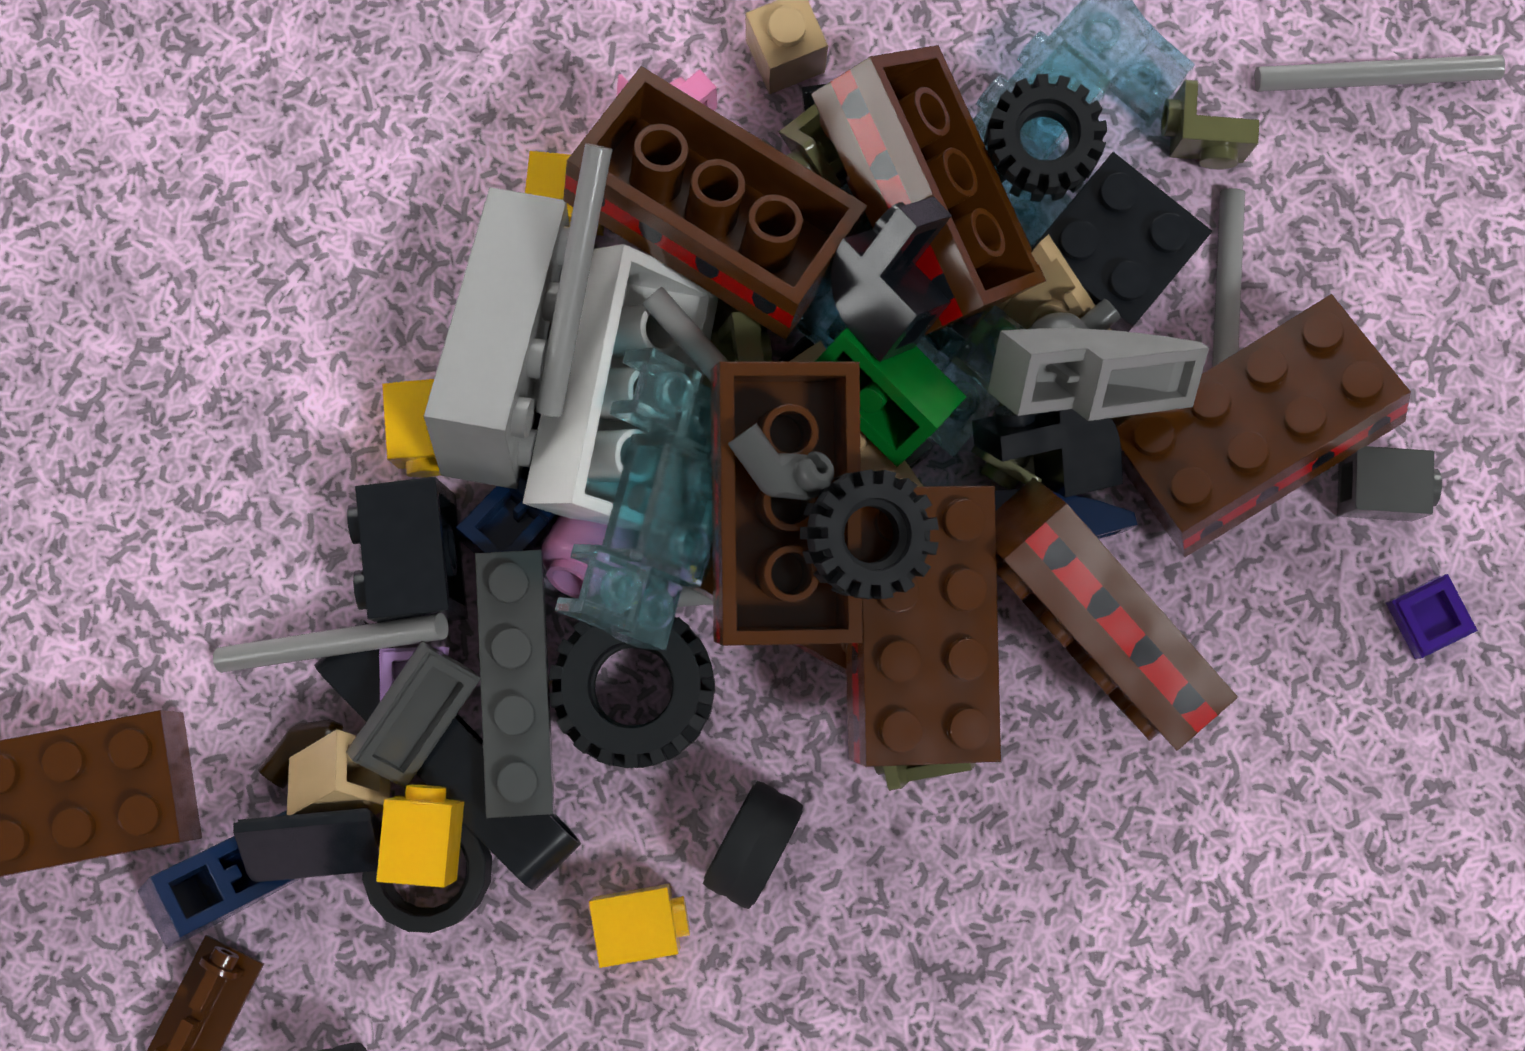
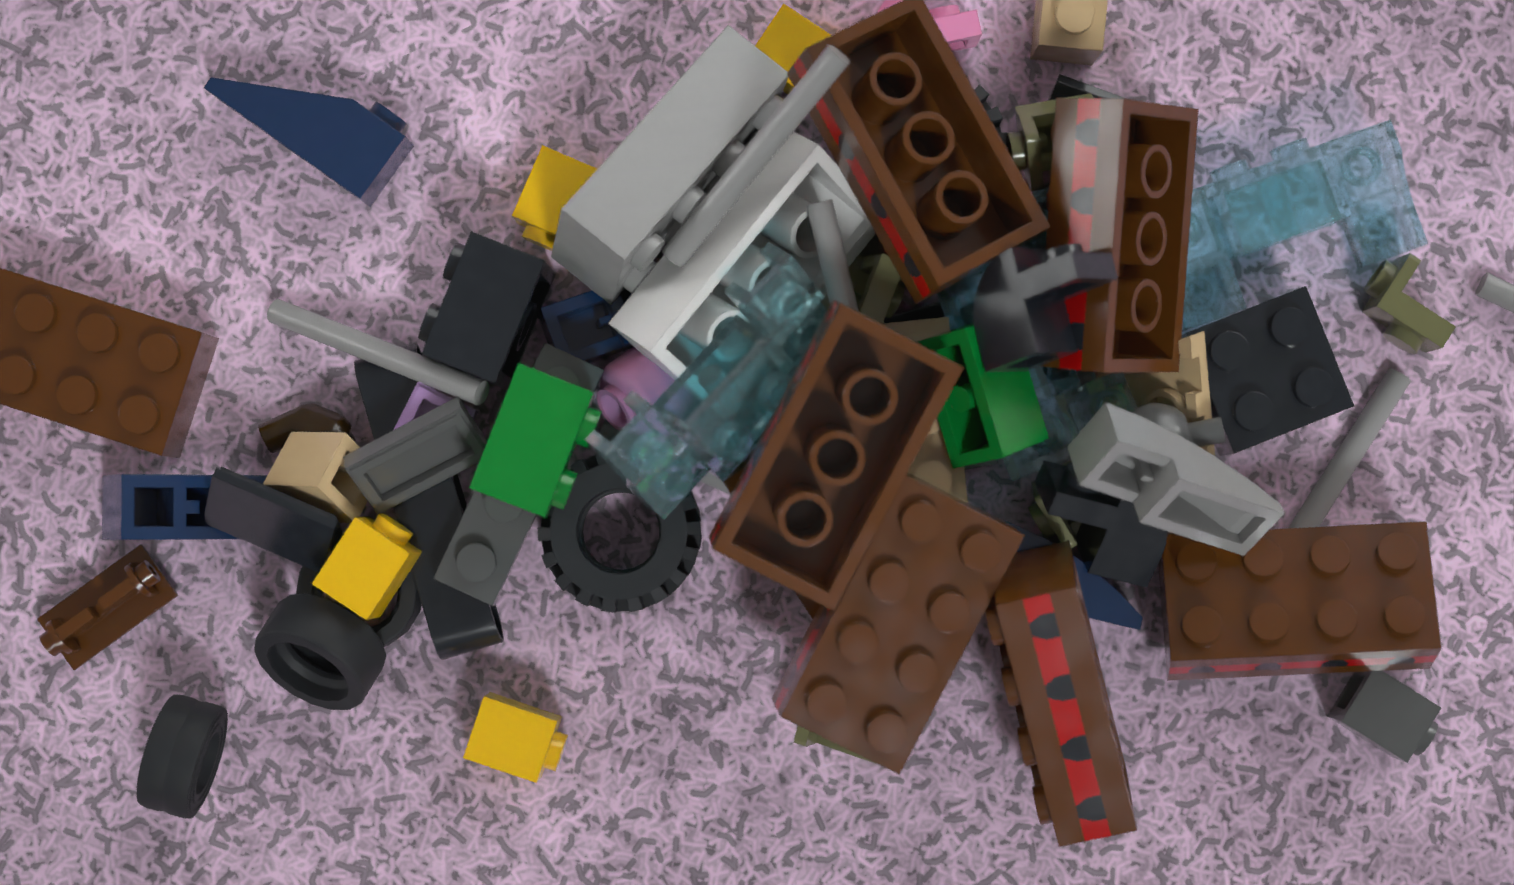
camera: 30 degrees right, 5 degrees up
(185, 476) = (331, 133): none -> dark blue slope
(418, 942) = (320, 651): none -> black tyre
(512, 642) = (535, 441): none -> green brick
(753, 845) = (651, 725): black tyre -> none
(782, 473) = (841, 430): dark grey arm -> none
(910, 534) = (912, 556): black tyre -> none
(1064, 106) = (1287, 236): black tyre -> none
(1431, 616) = (1358, 849): dark purple tile -> none

